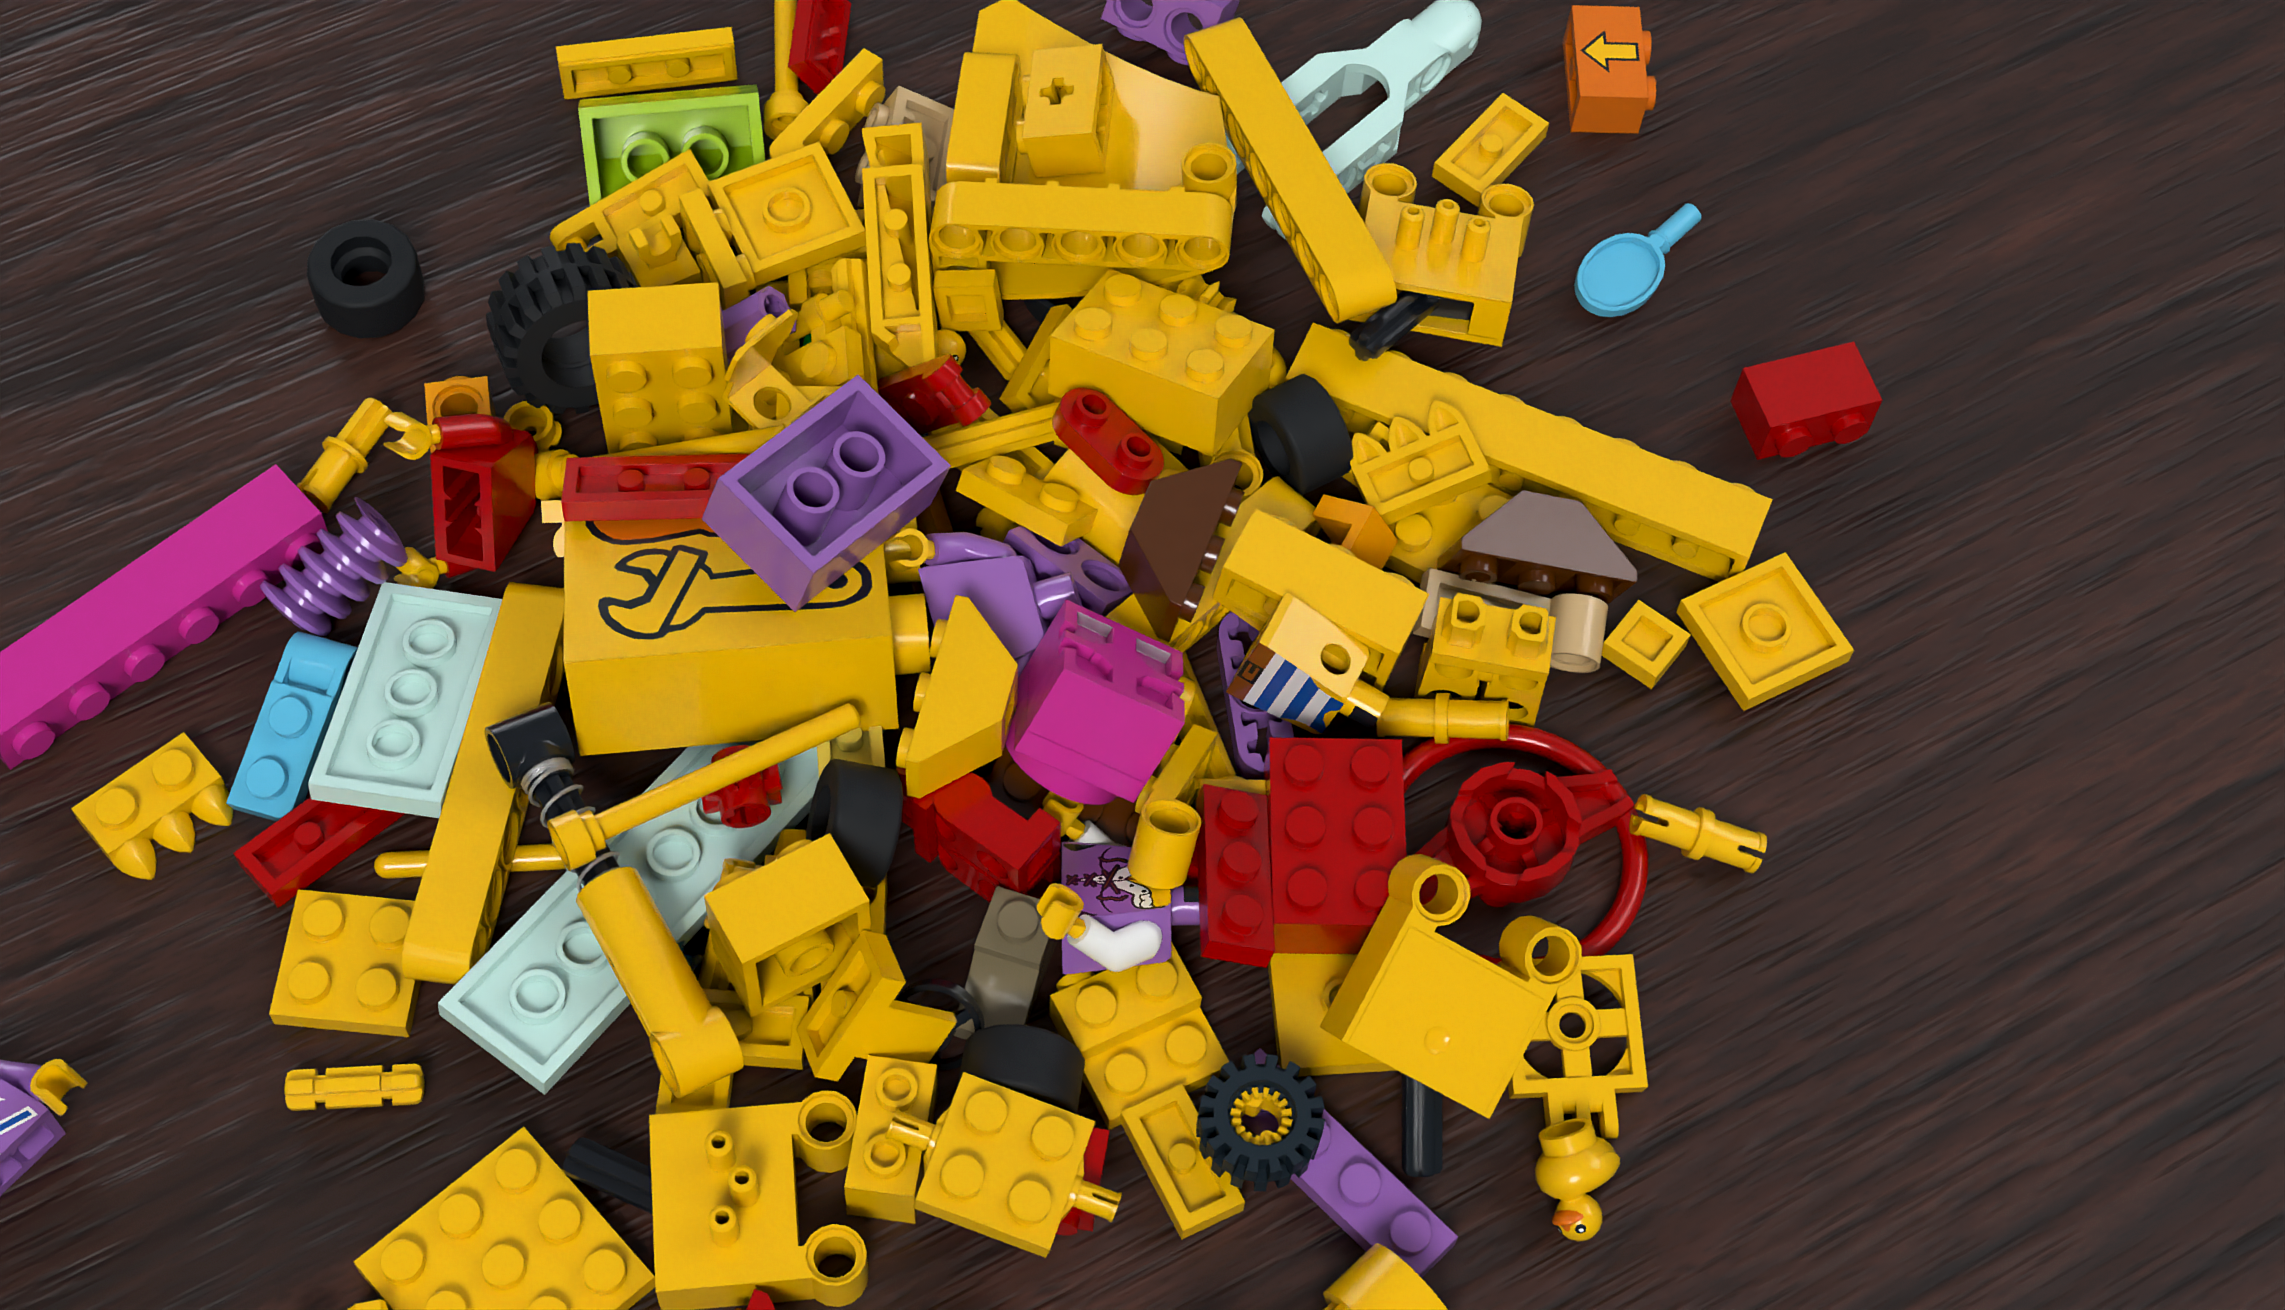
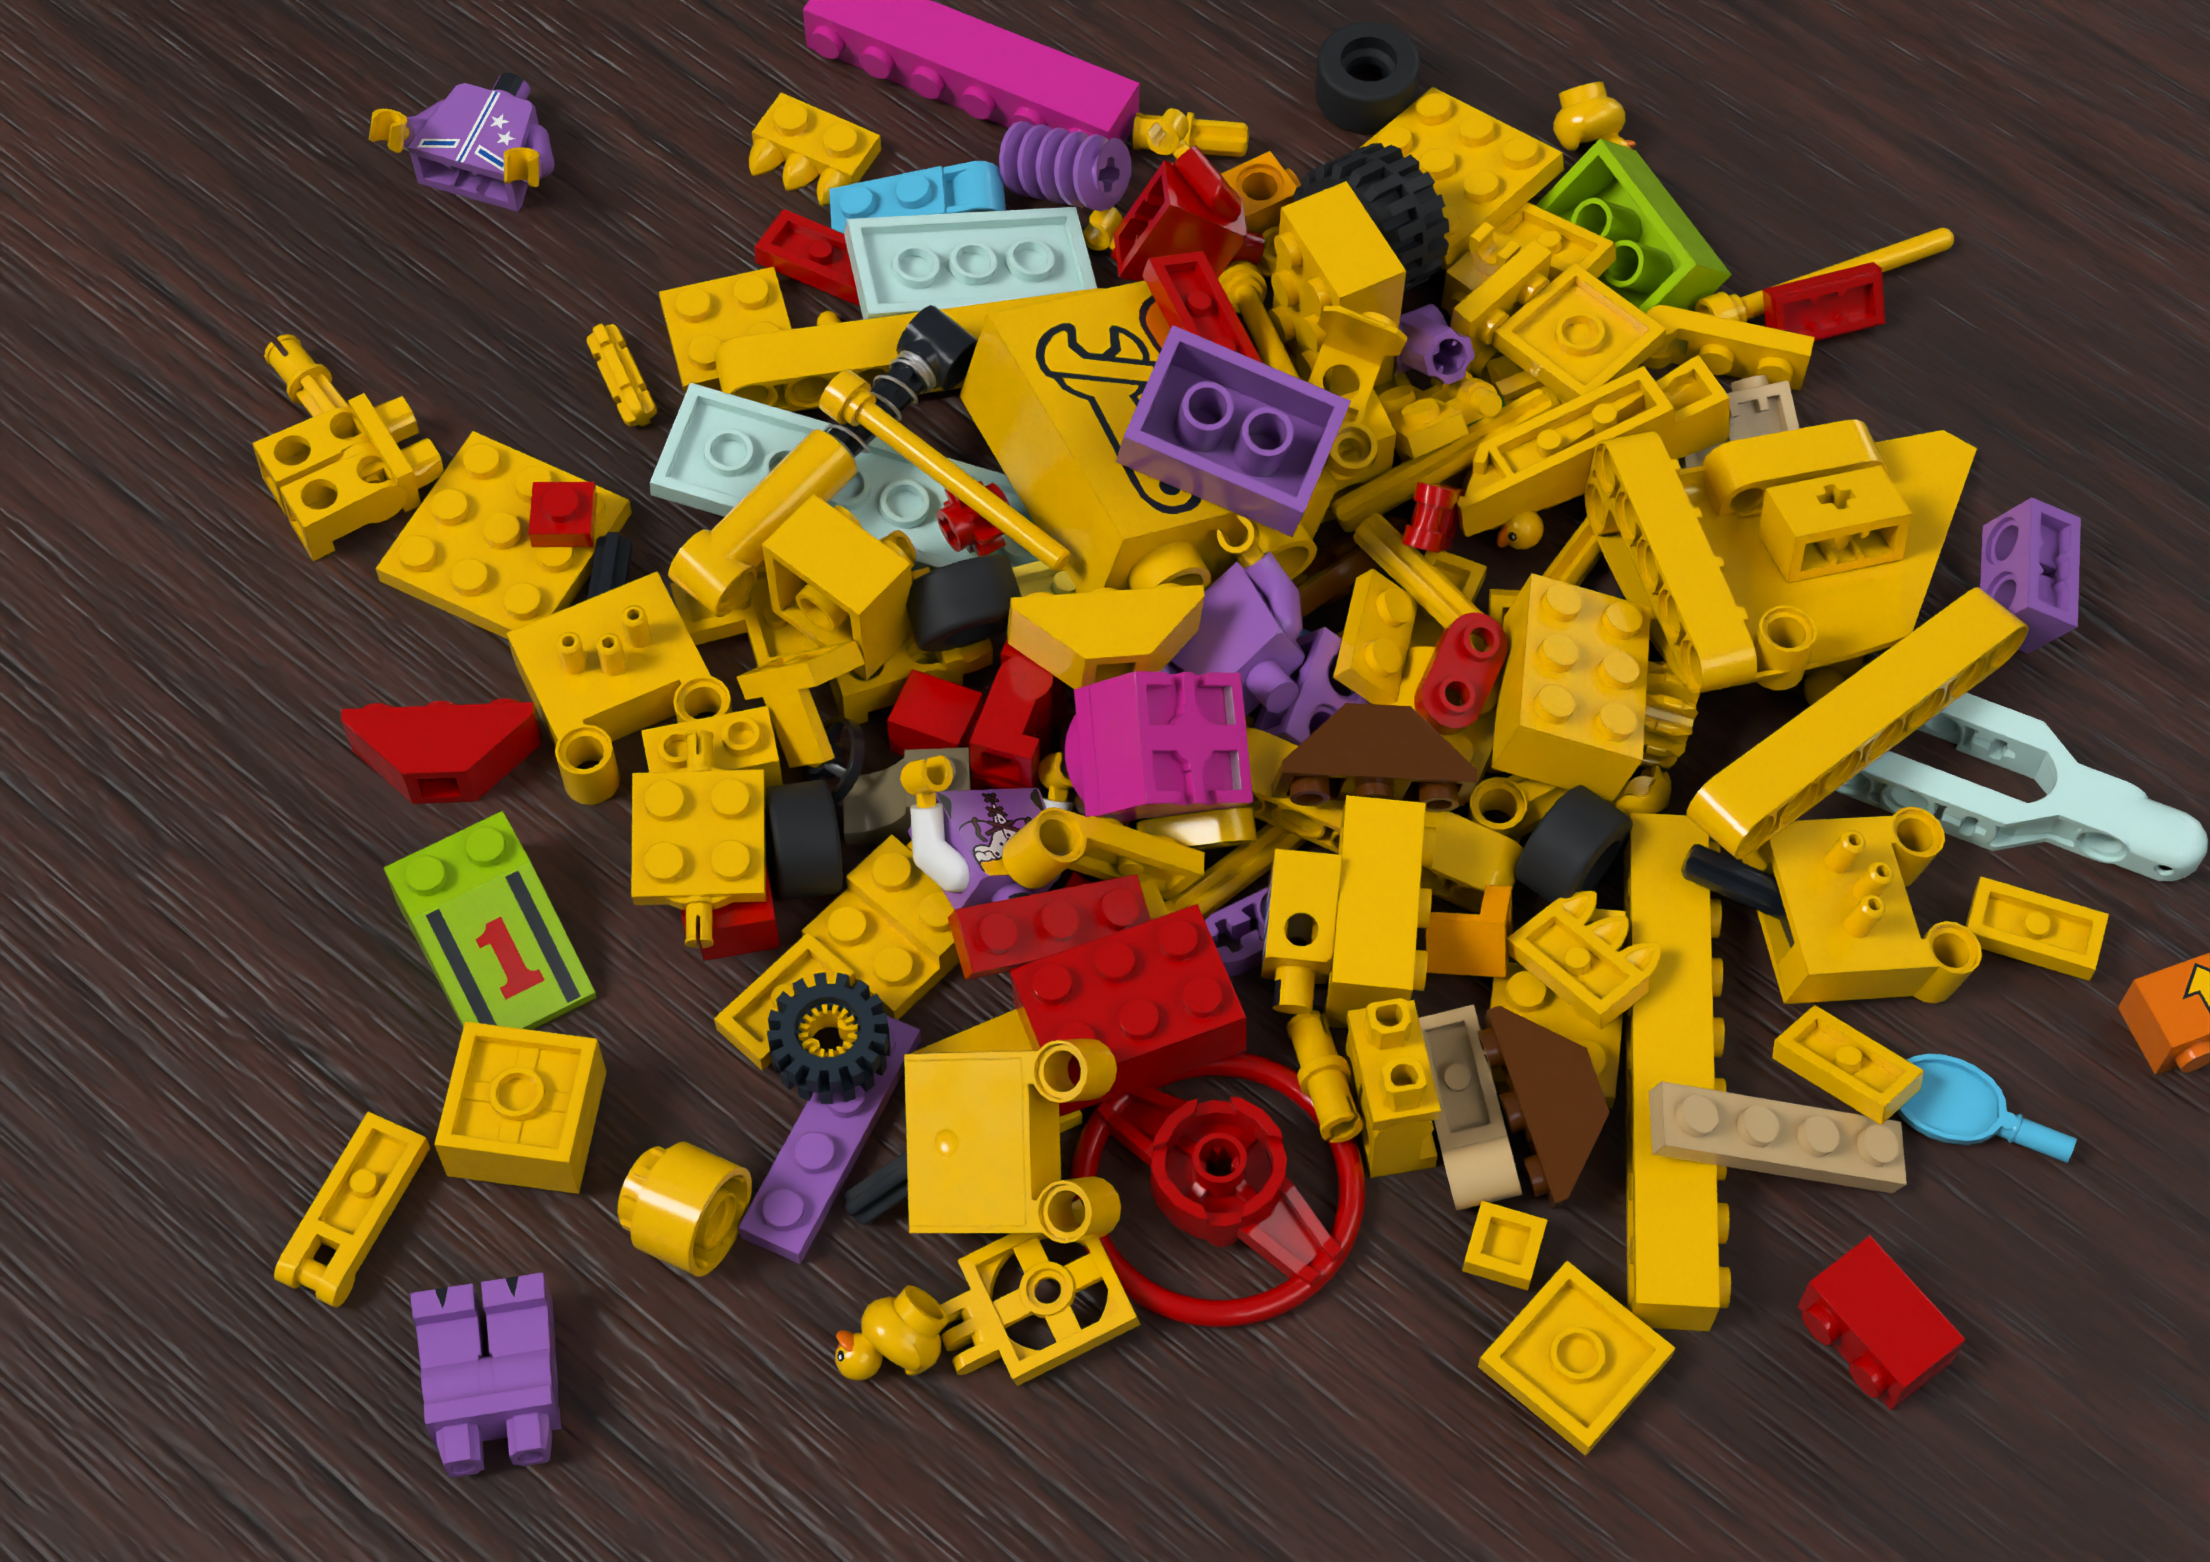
camera: 75 degrees right, 0 degrees up
(484, 236) = (1474, 159): none -> yellow plate
(524, 125) = (1589, 116): none -> yellow animal
(524, 1191) = (563, 514): none -> red plate
(647, 63) = (1712, 188): yellow tile -> none
(938, 912) = (933, 714): none -> red brick
(968, 300) = (1574, 519): yellow plate -> none
(1572, 326) = (1848, 1064): none -> yellow plate
(1629, 399) = (1776, 1137): none -> tan plate
(1698, 833) = (1305, 1350): yellow pin -> none

